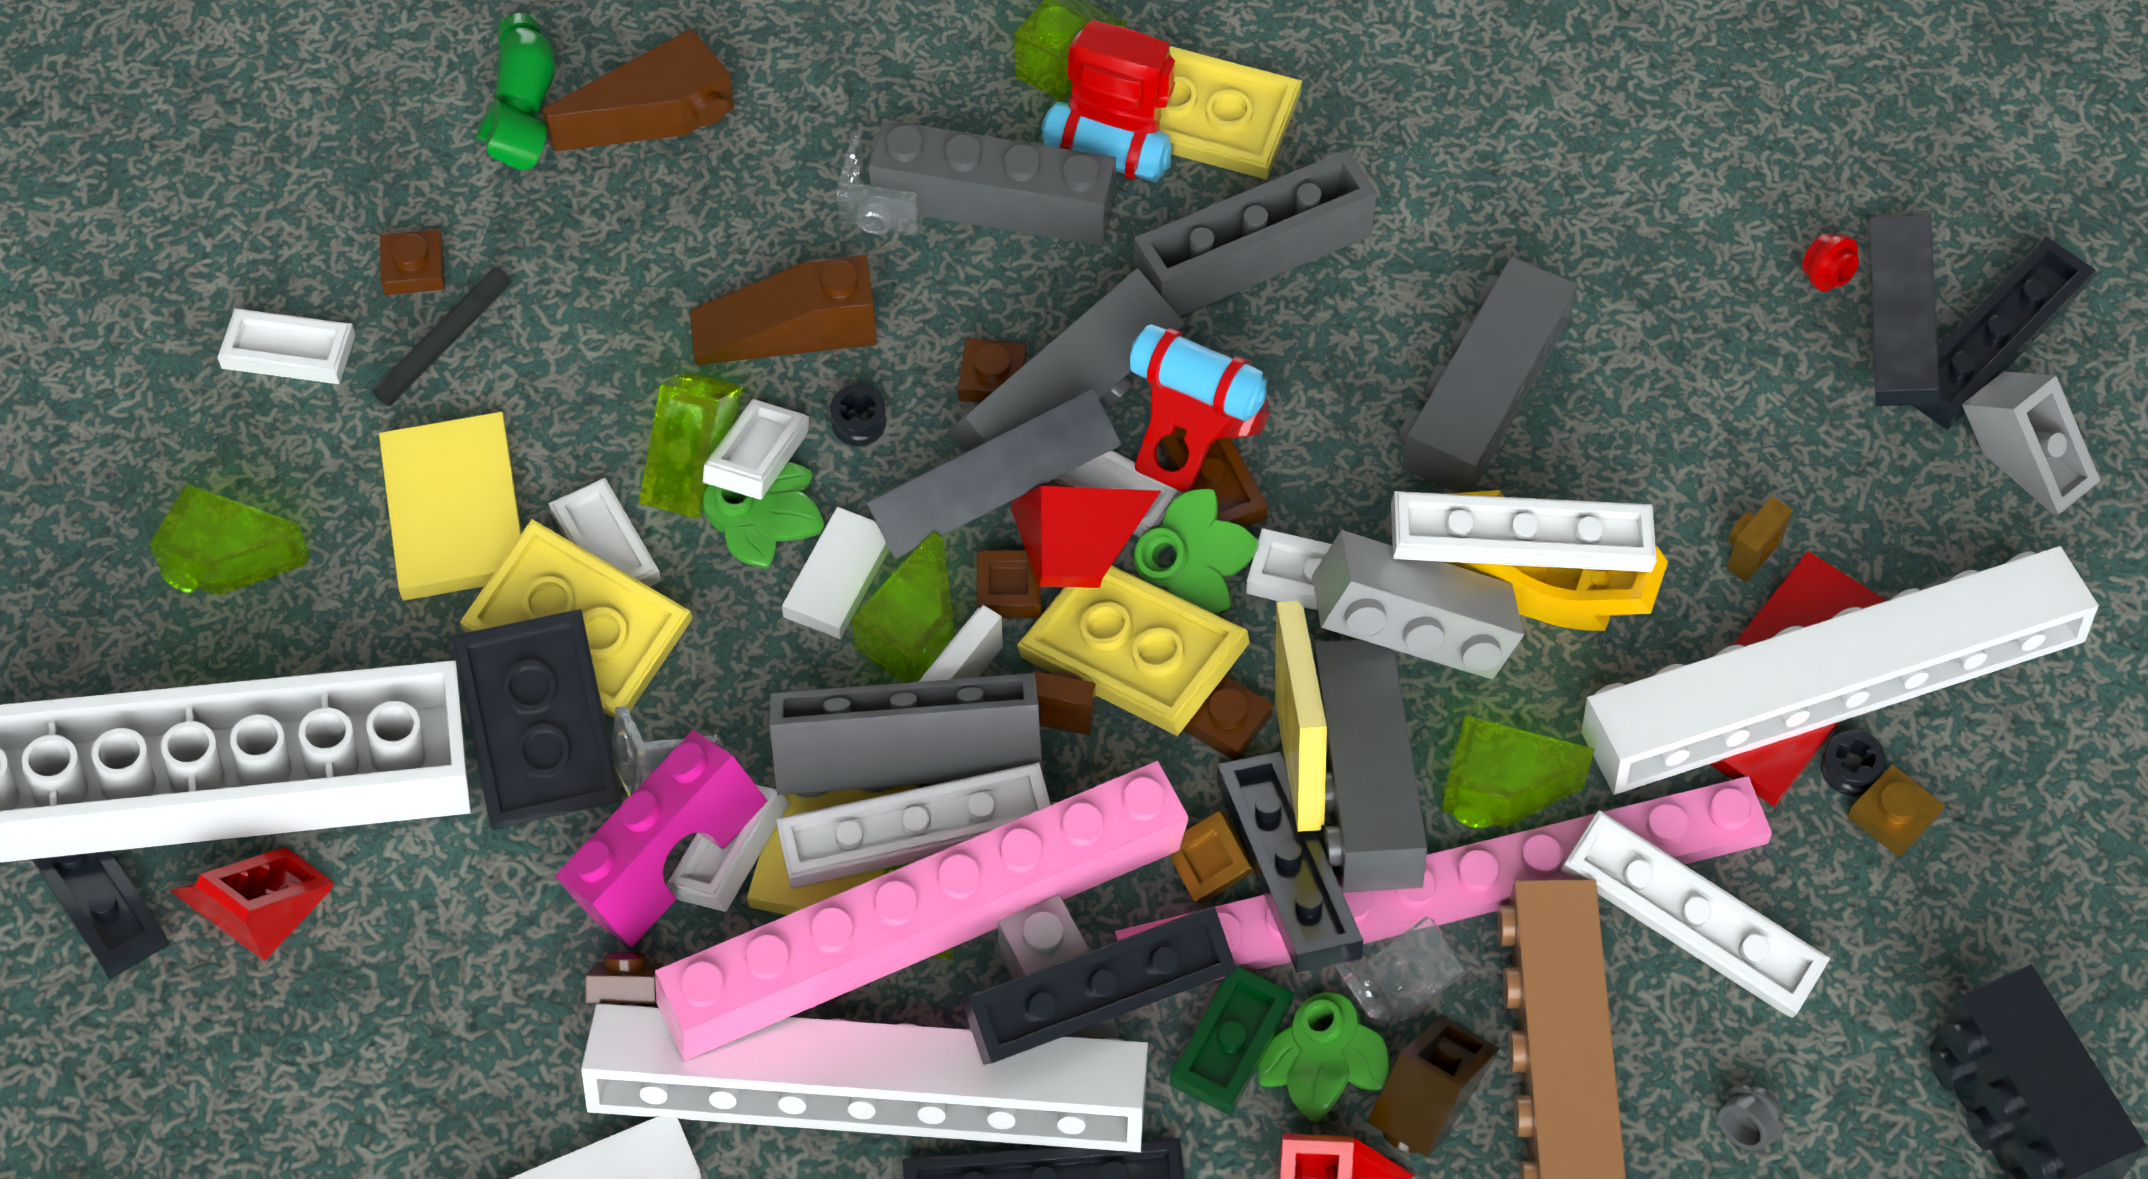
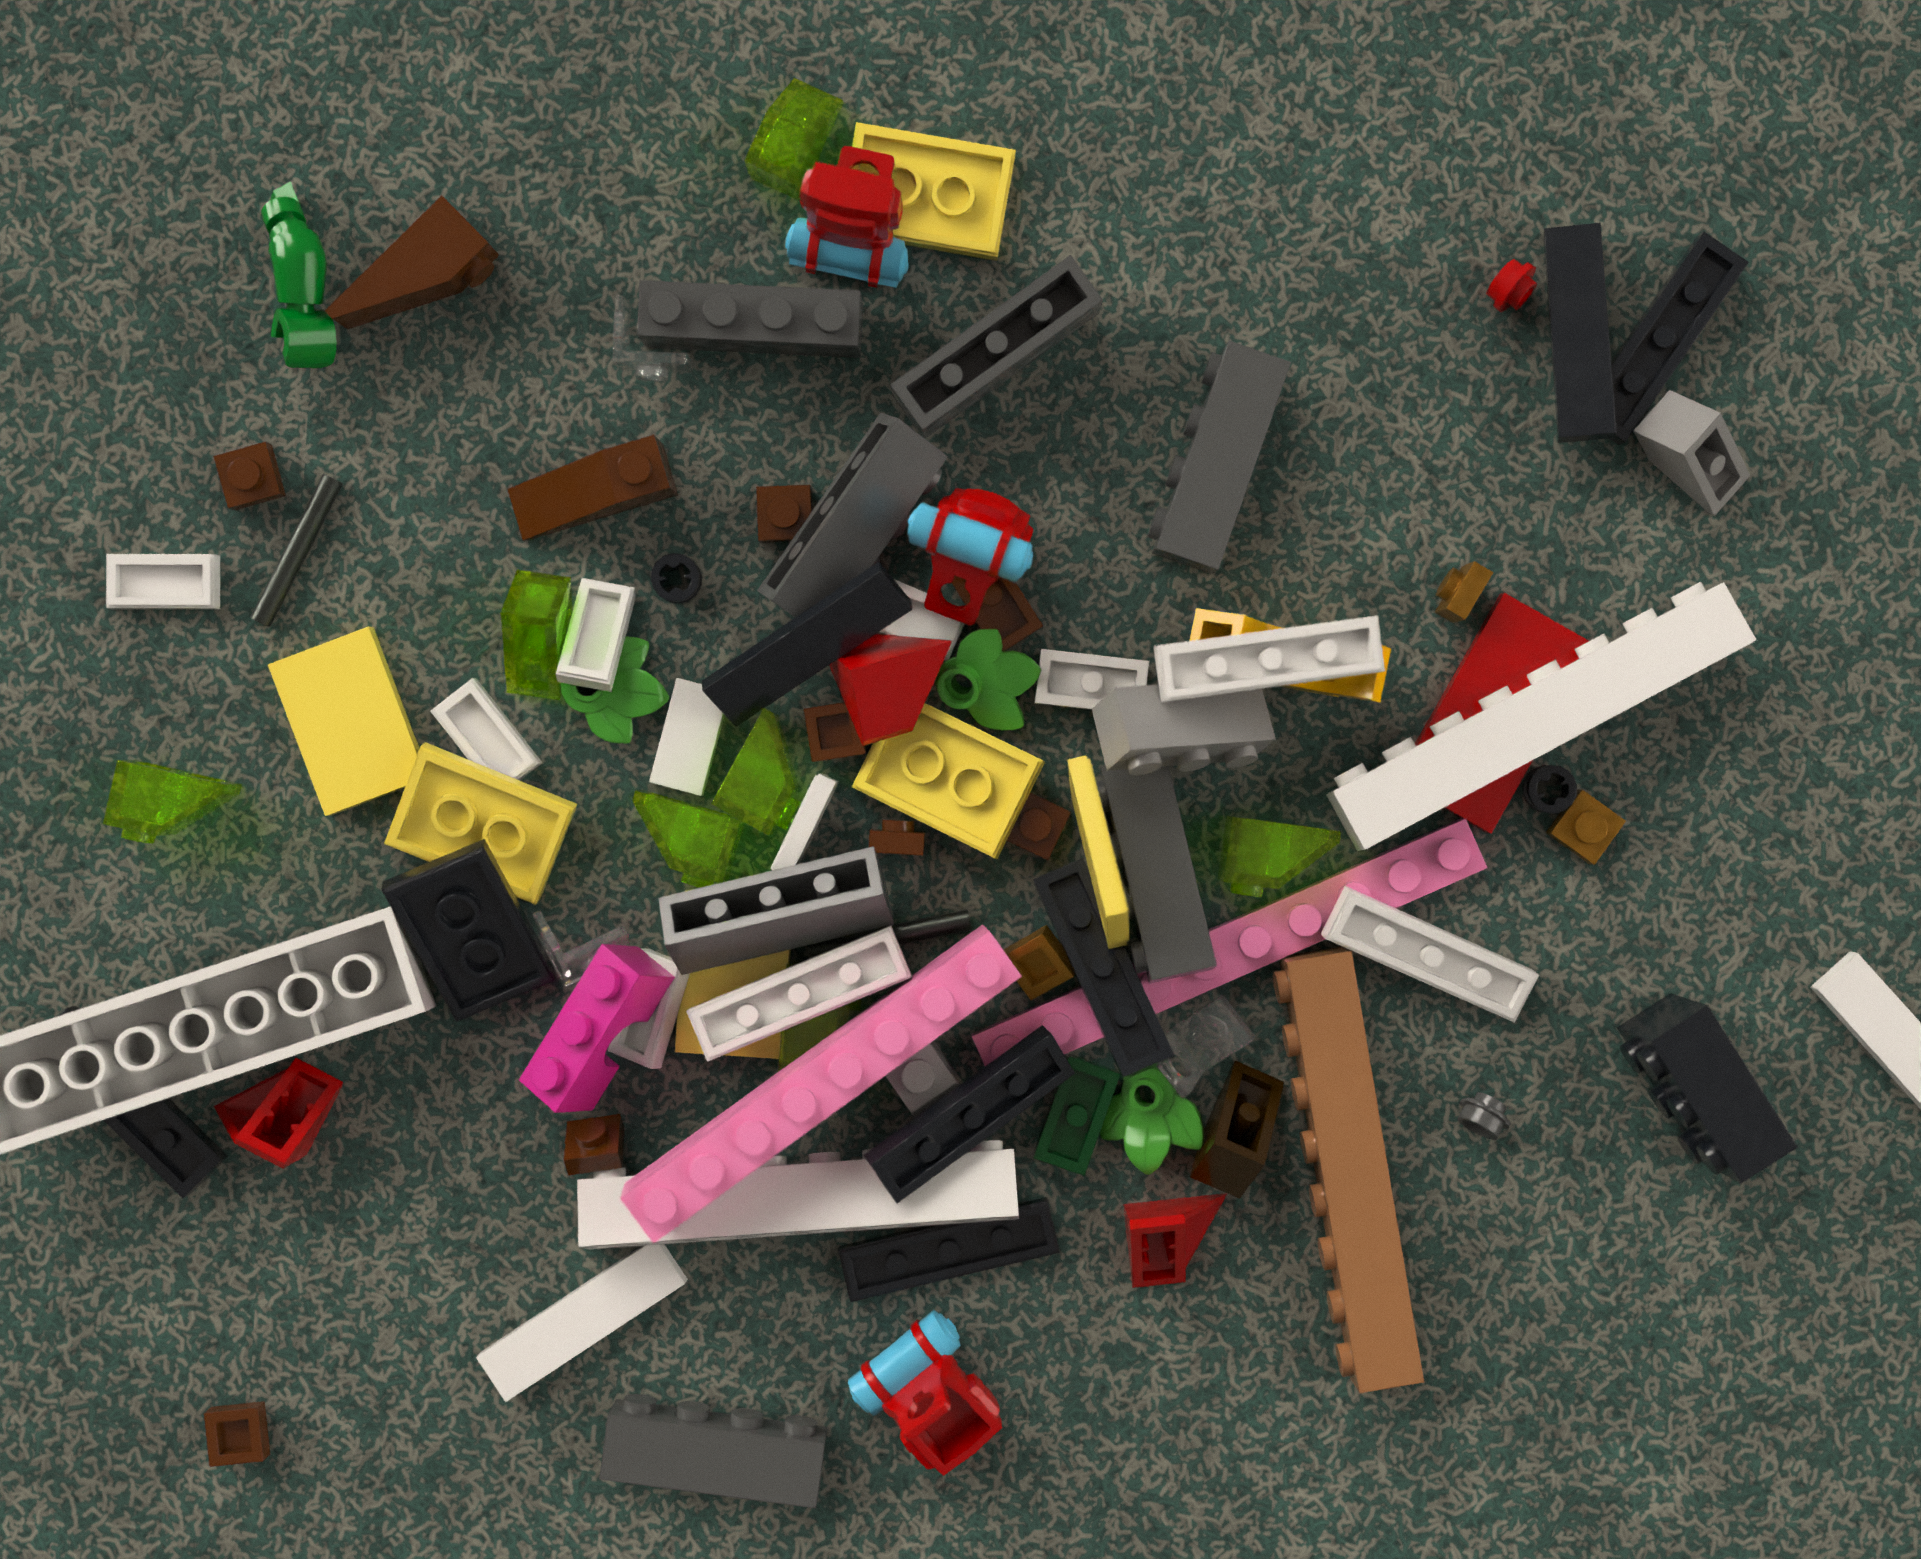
camera: 10 degrees left, 30 degrees up
(819, 651) = (691, 837): none -> clear neon green slope

